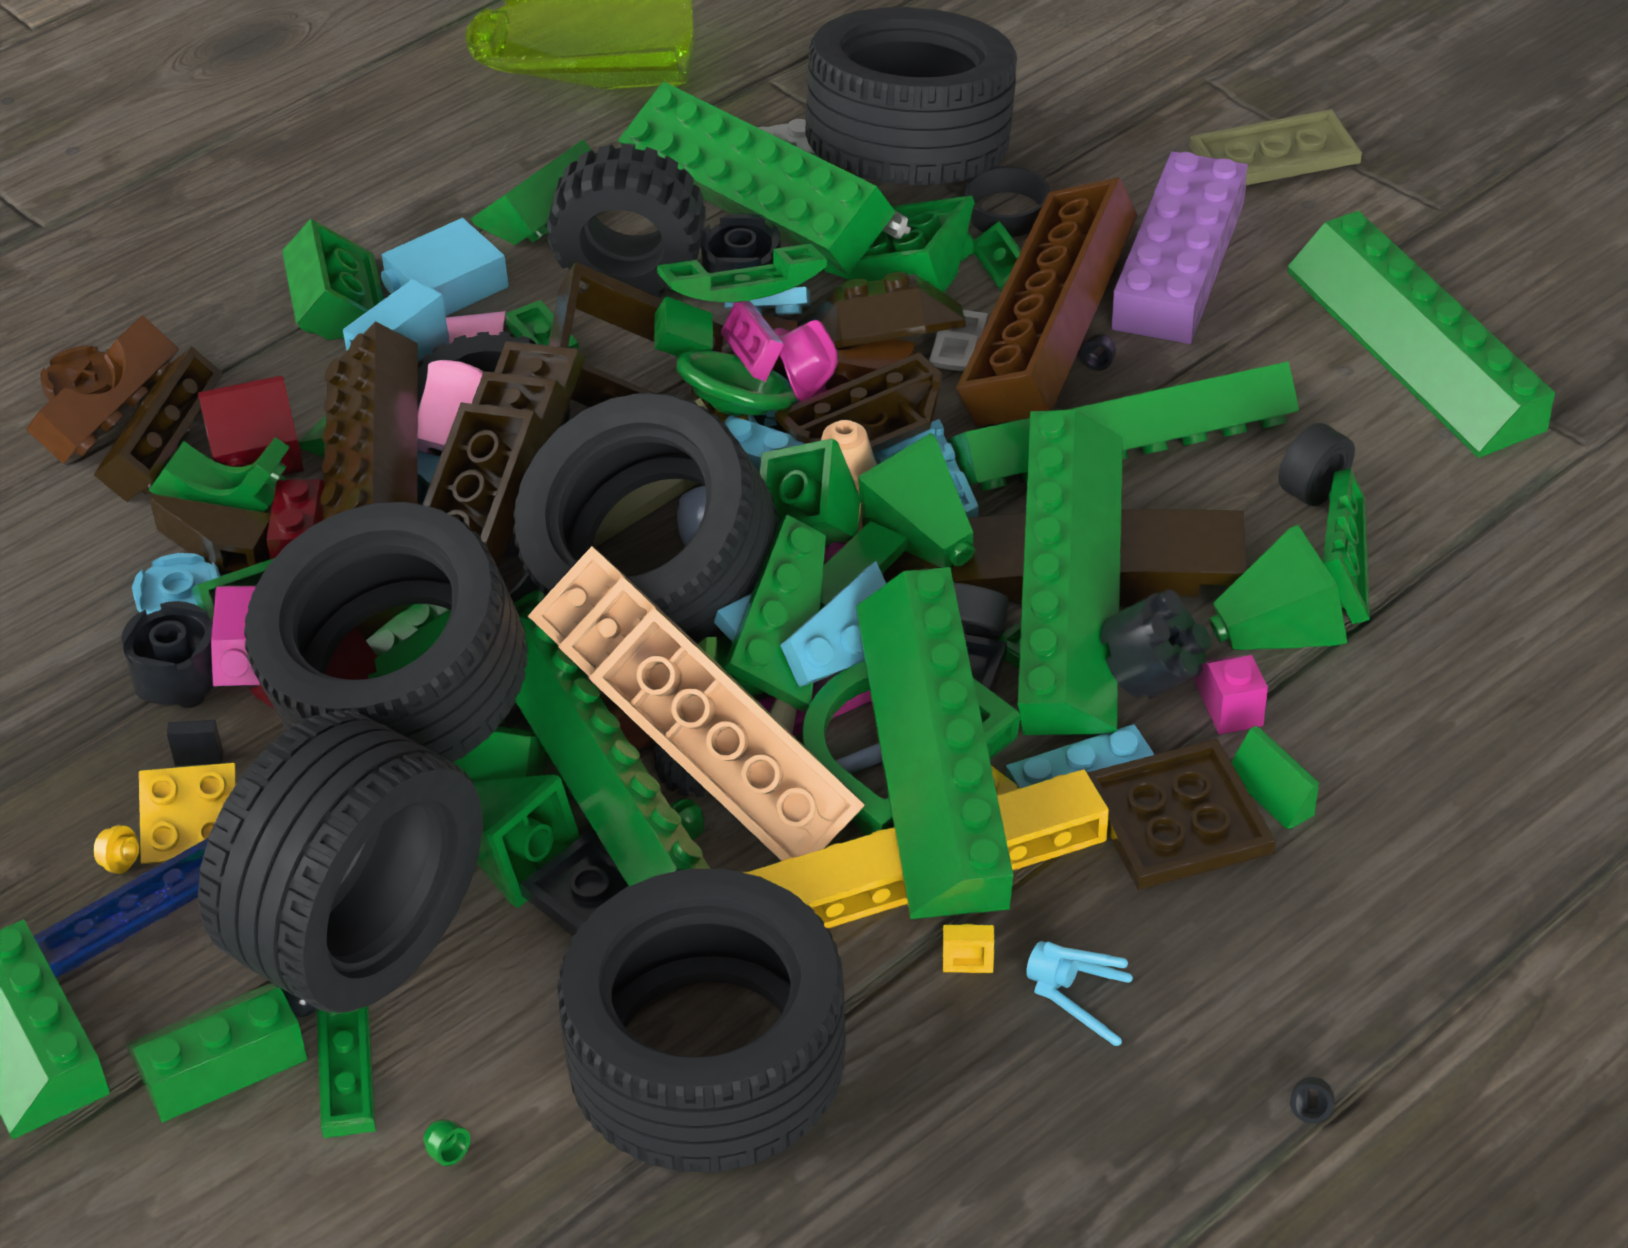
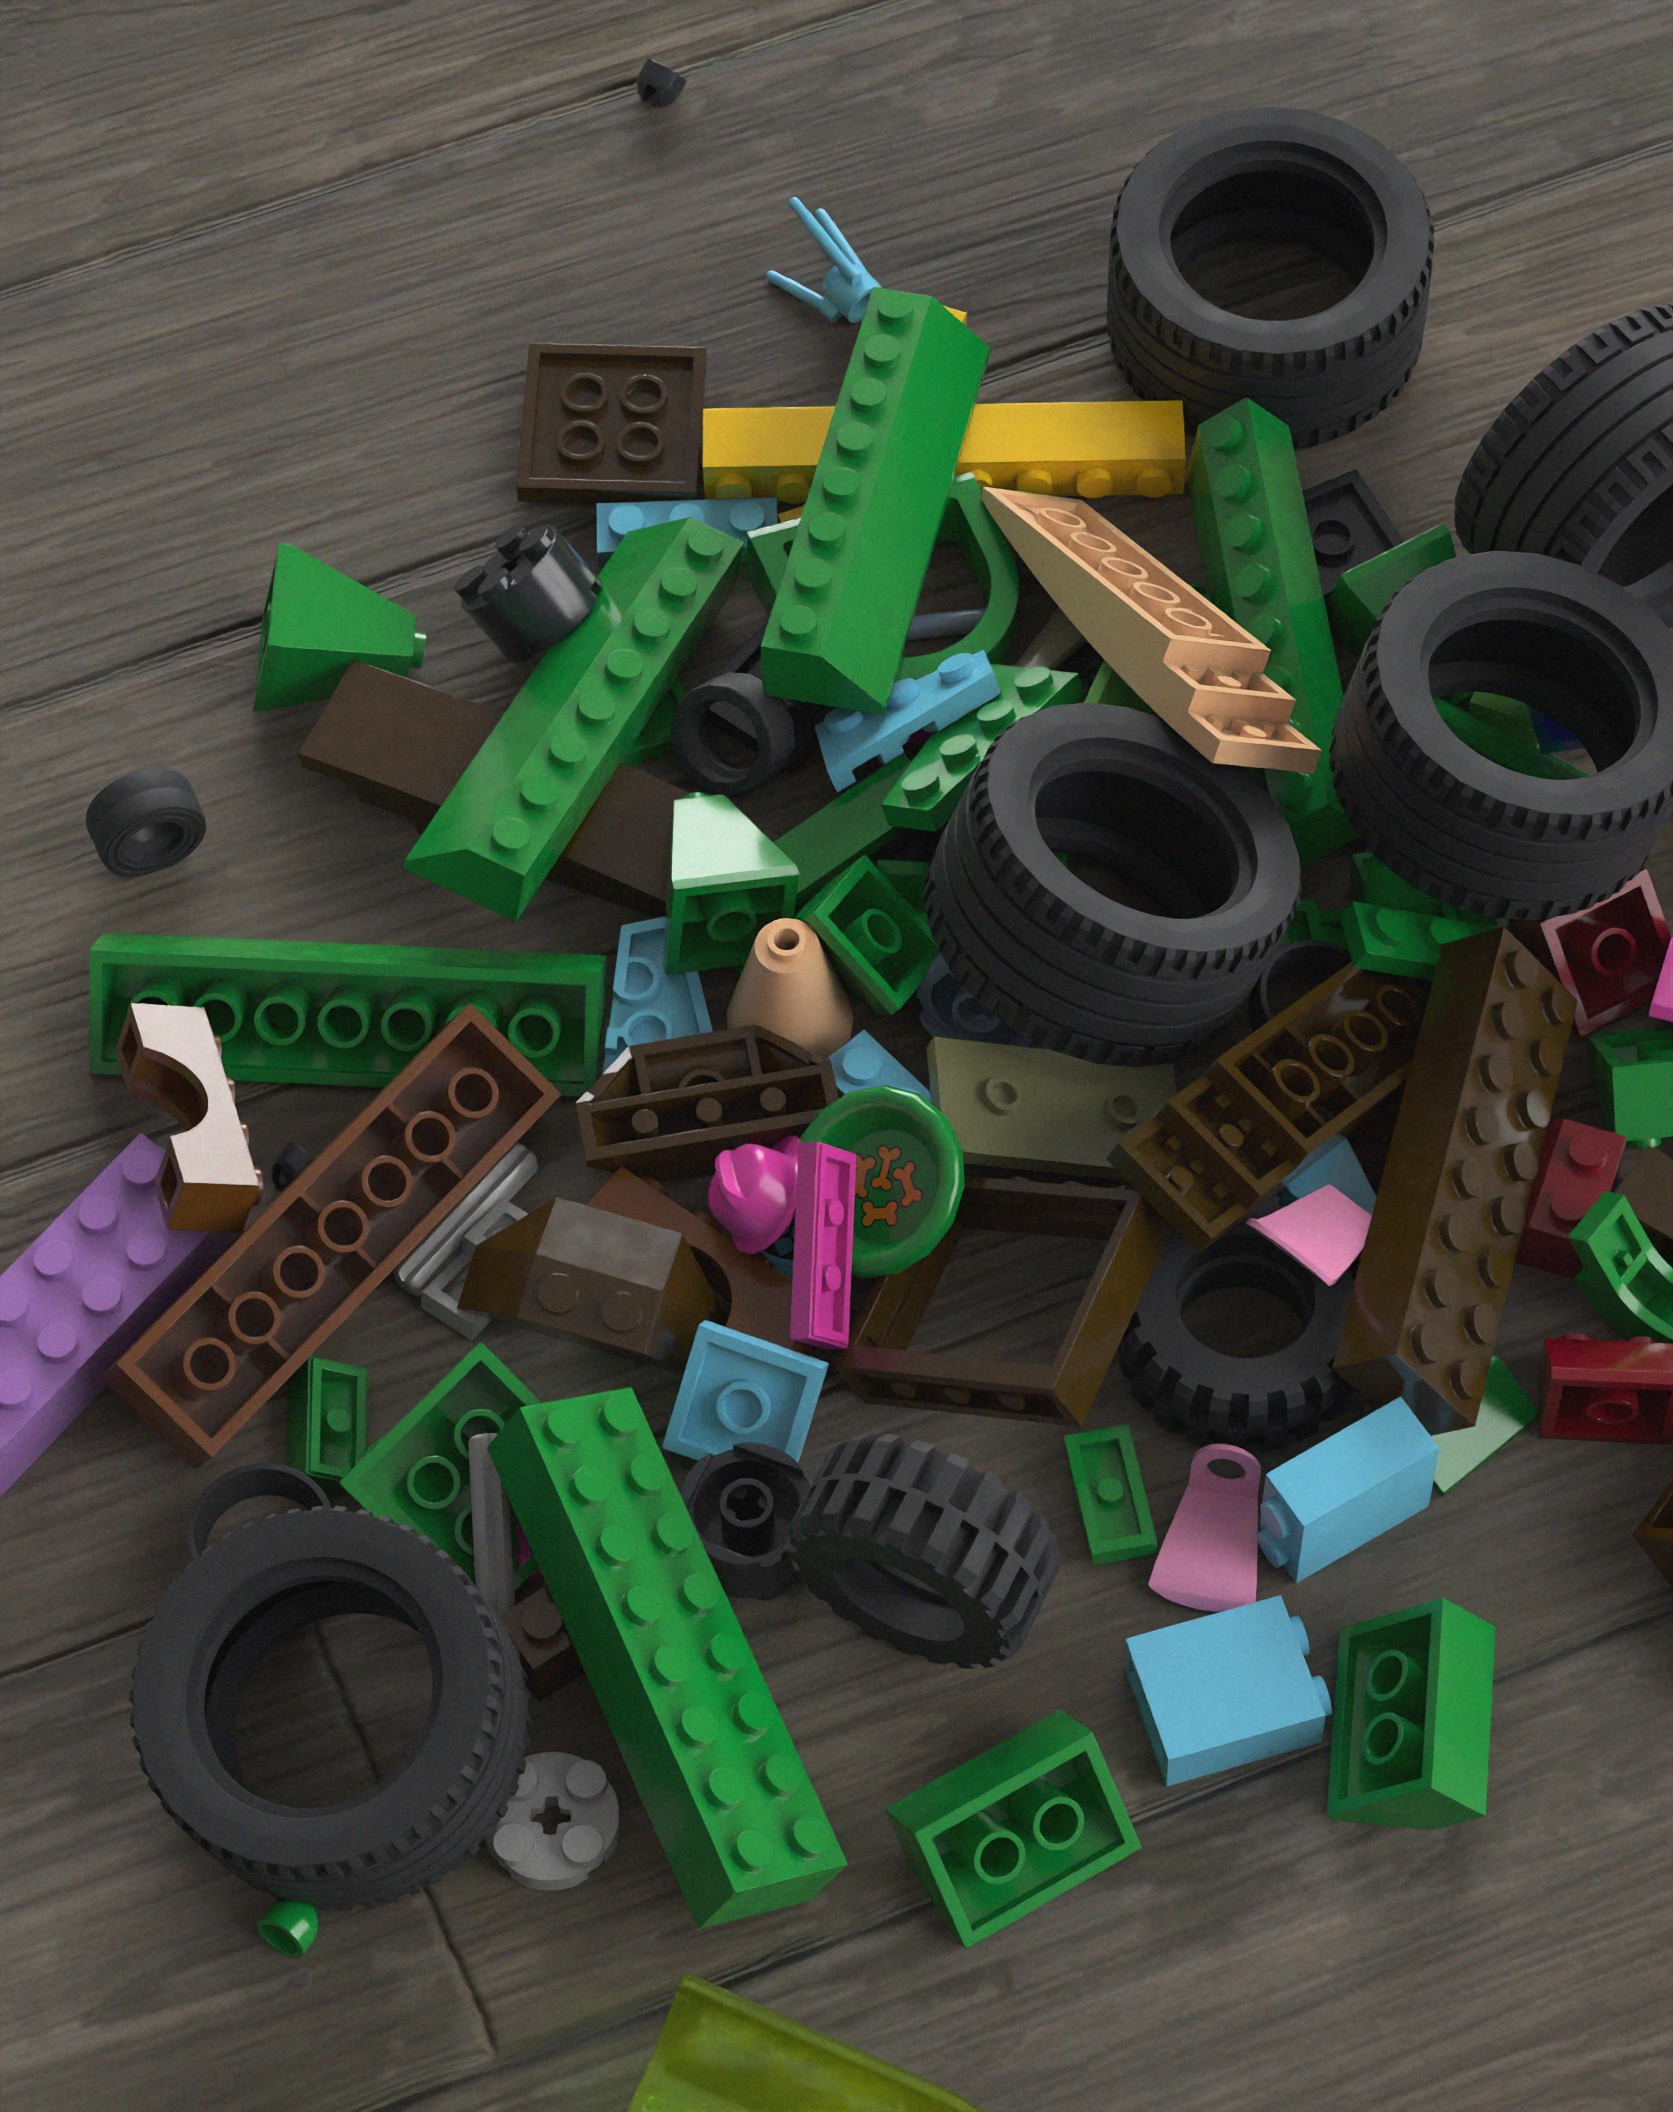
camera: 160 degrees left, 15 degrees up
(446, 1141) = (1575, 304): green hinge -> none
(682, 328) = (916, 1304): green piece -> none
(789, 268) = (792, 1344): green slope -> none
(1198, 336) = (177, 1065): none -> reddish brown arch
(1233, 692) = (455, 539): dark pink slope -> none
(1275, 779) = (479, 432): green slope -> none
(1347, 545) = (198, 683): green wing -> none

